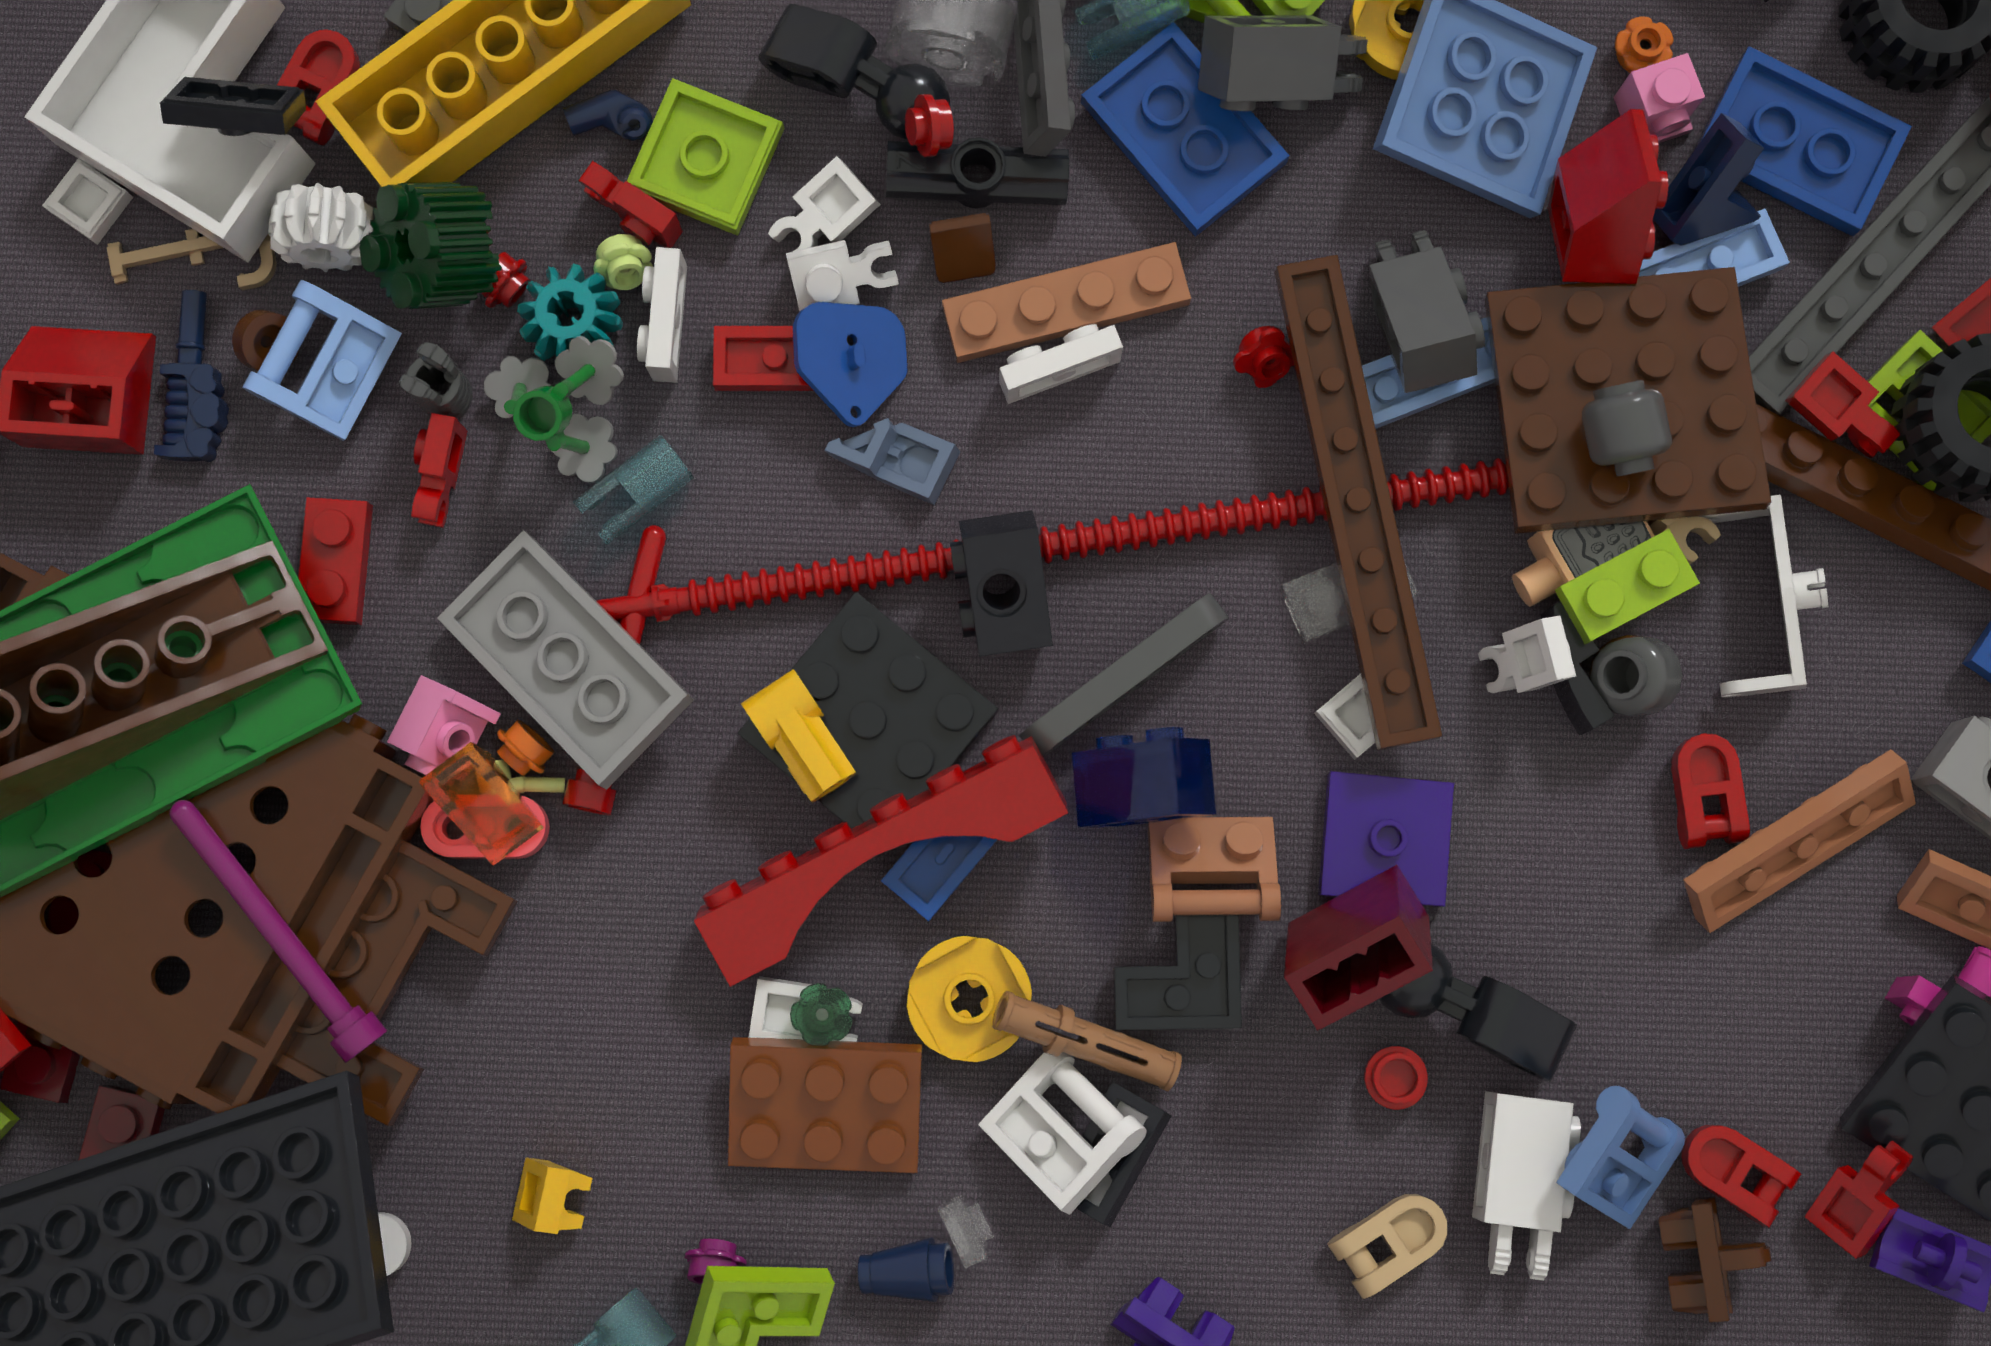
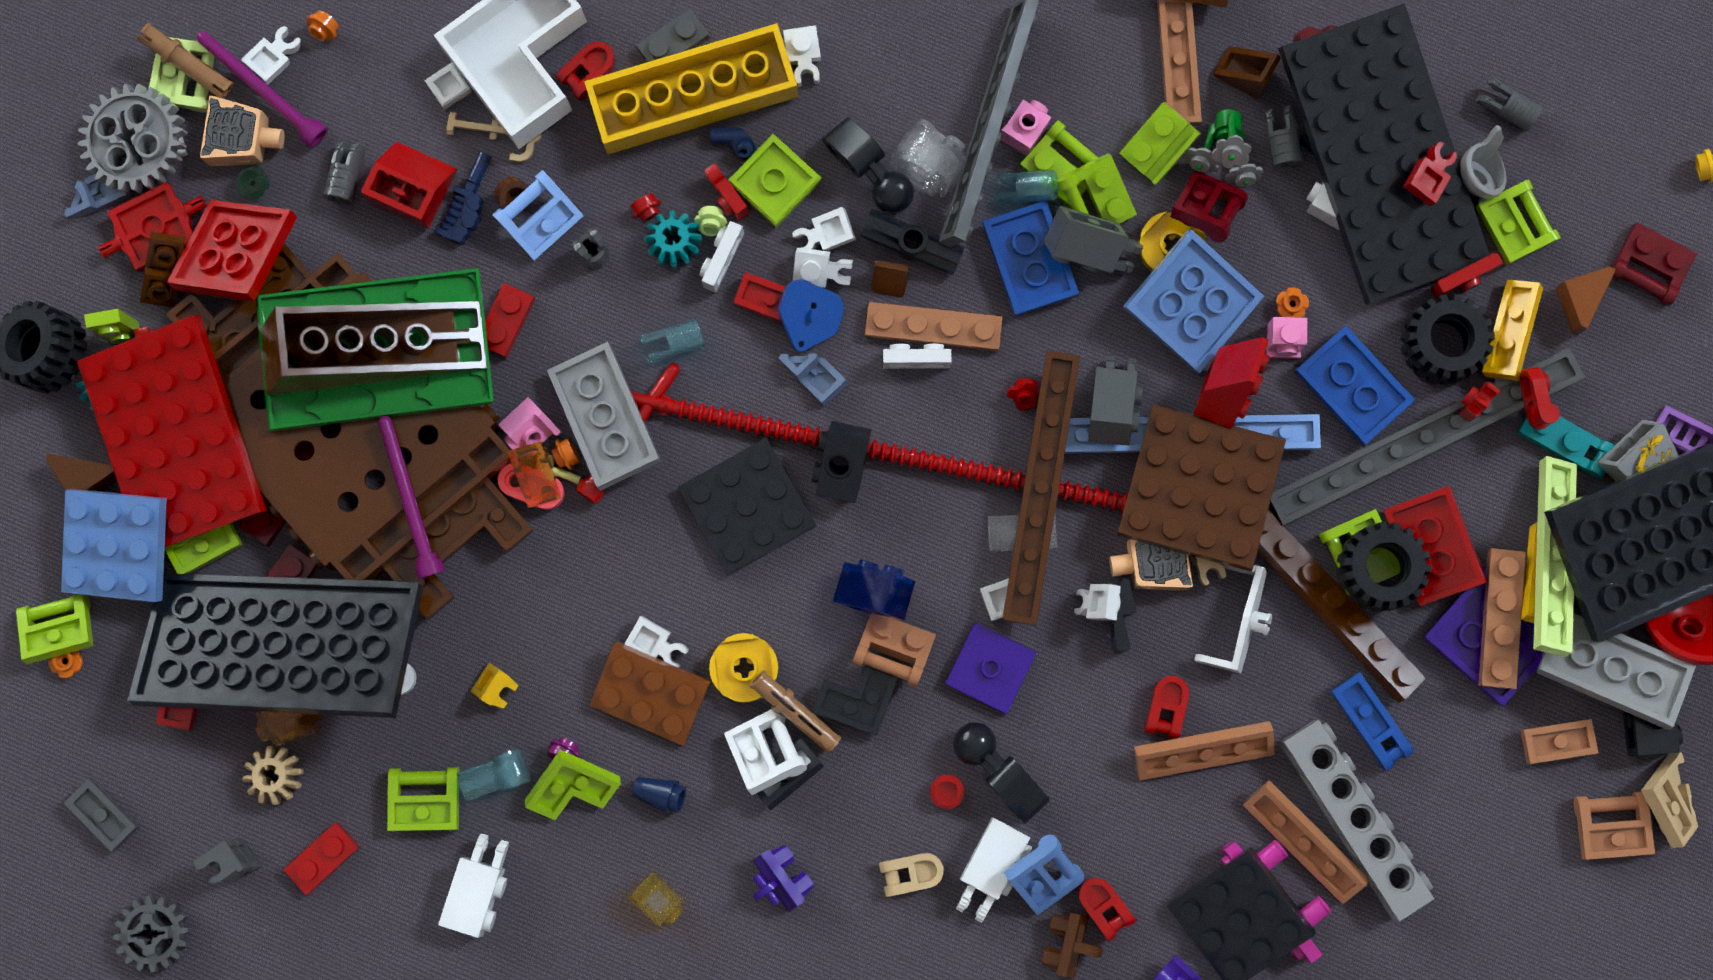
camera: 25 degrees right, 0 degrees up
(233, 106) = (542, 71): black plate -> none
(319, 226) = (563, 146): white gear -> none
(431, 244) = (615, 177): dark green brick -> none
(439, 458) = (579, 286): red plate -> none
(546, 411) = (641, 286): light grey plant -> none
(793, 725) = (706, 493): yellow piece -> none
(817, 1031) = (657, 641): clear green plate -> none
(929, 125) = (894, 210): red plate -> none
(934, 870) = (760, 589): blue plate -> none
(967, 1229) = (697, 783): clear plate -> none
(994, 799) = (795, 570): red arch -> none
(1126, 674) = (887, 533): dark grey beam -> none
(1358, 948) = (949, 715): dark red brick -> none
(1626, 427) = (1190, 502): dark grey head -> none
(1627, 586) = (1163, 584): lime plate -> none
(1636, 675) = (1151, 632): dark grey head -> none
(1703, 193) = (1291, 394): dark blue slope -> none
(1837, 401) = (1314, 529): red plate -> none
(1854, 1204) = (1156, 944): red plate -> none

